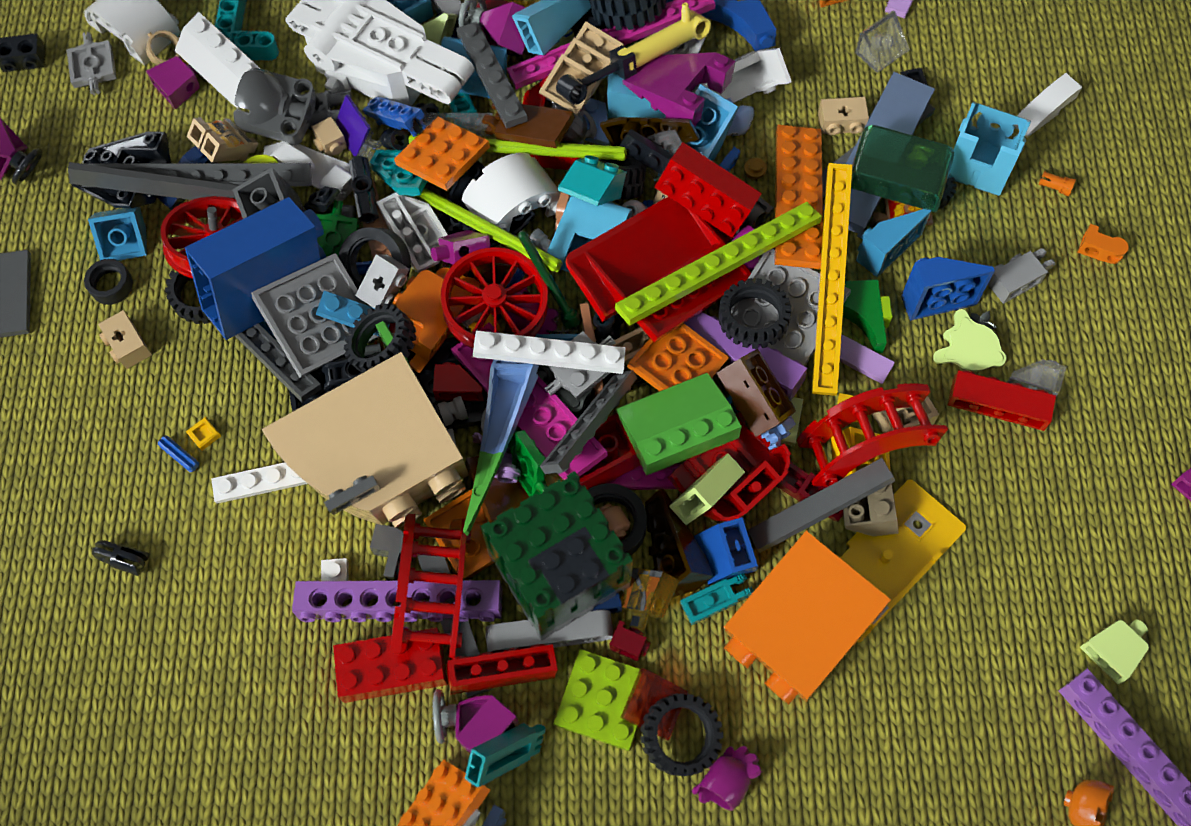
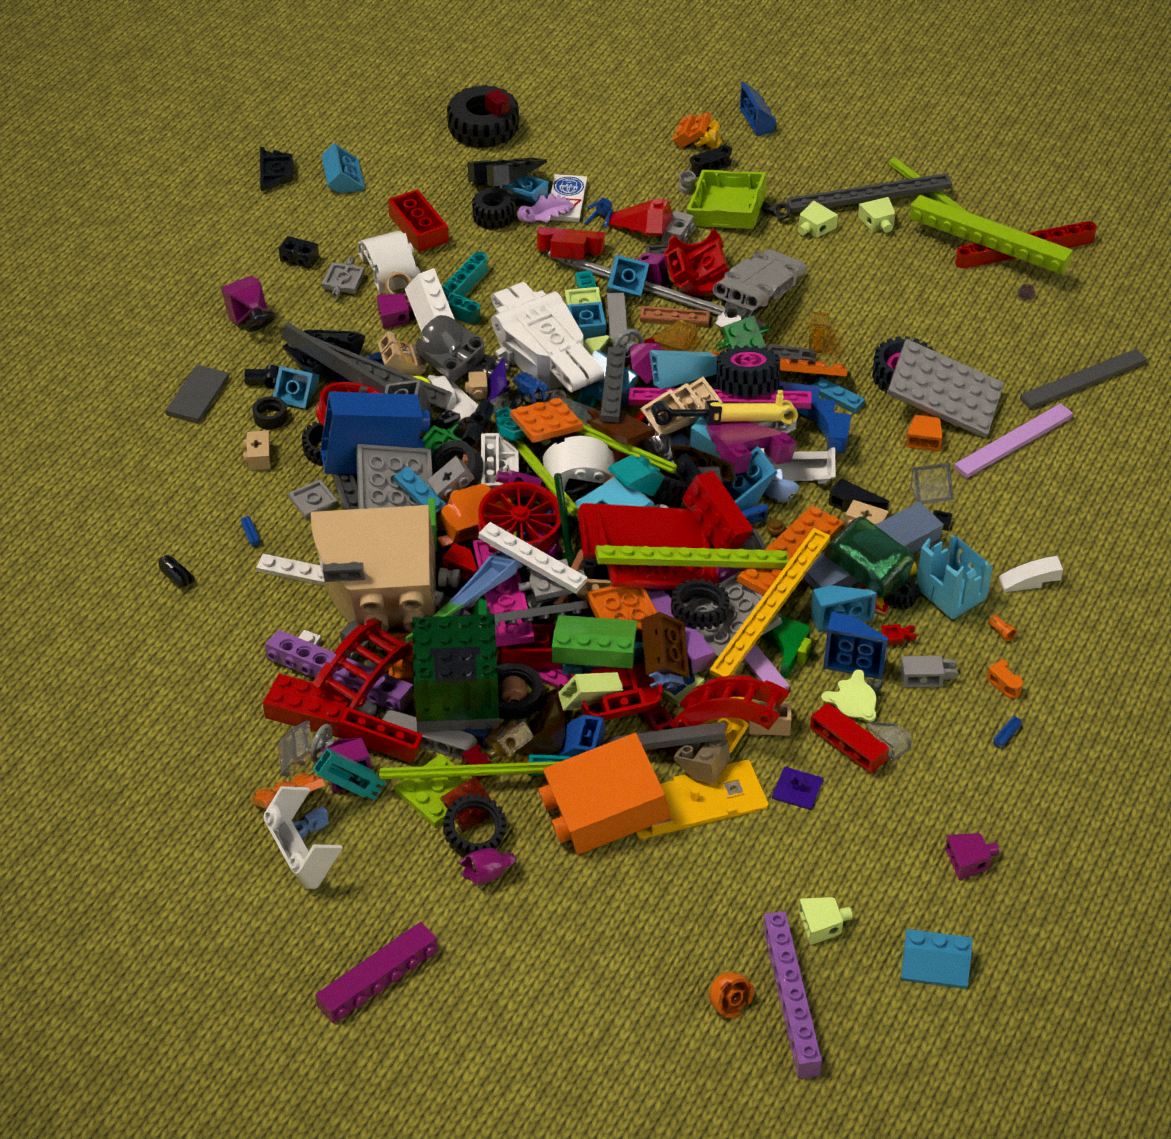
camera: 25 degrees right, 20 degrees down
(76, 235) = (262, 376): none -> black piece
(203, 433) = (274, 527): yellow tile -> none
(227, 374) = (313, 498): none -> light grey tile
(366, 328) = (437, 510): black tyre -> none
(412, 738) = (295, 748): none -> clear slope
(643, 658) = (463, 770): none -> lime axle
(807, 94) = (845, 492): none -> black slope
(961, 244) = (897, 634): none -> red plate
(980, 487) = (797, 788): none -> dark purple piece
(1142, 308) = (1007, 731): none -> blue axle

